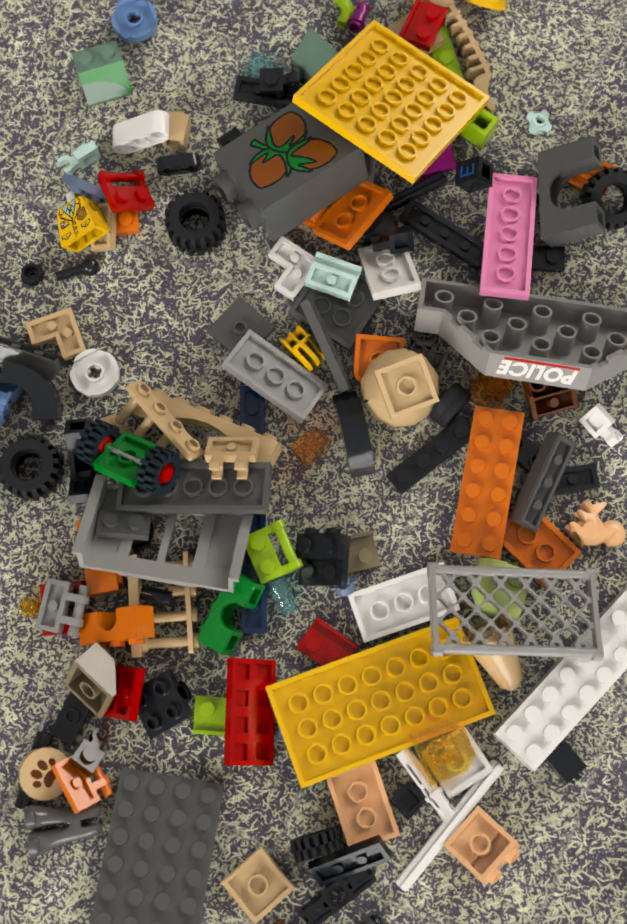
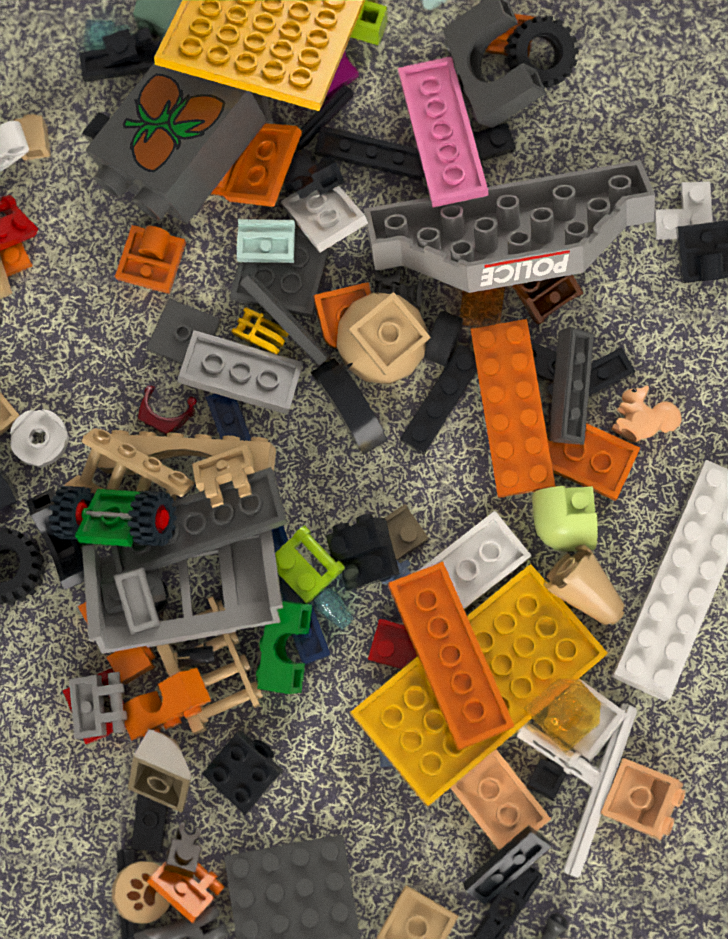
camera: 15 degrees left, 0 degrees up
(29, 607) = (59, 719): clear yellow plate -> none
(123, 534) = (137, 600): none -> light grey tile
(128, 693) = (205, 778): red plate -> none
(178, 164) = (49, 174): black beam -> none
(195, 204) = (85, 212): black tyre -> none
(196, 395) = (160, 423): none -> dark red helmet
(209, 715) = (311, 763): lime plate -> none
(235, 259) = (150, 258): none -> orange plate
(249, 713) = (342, 746): red plate -> none
(297, 265) = (222, 243): white plate -> none
(310, 447) = (306, 436): clear orange brick -> none
(315, 844) = (464, 861): black tyre -> none
(364, 670) = (450, 656): none -> orange plate
(474, 174) = (381, 76): black brick -> none
(566, 763) = (700, 679): black brick -> none
(588, 574) = (615, 572): light grey door -> none
(599, 423) = (611, 302): white plate -> none

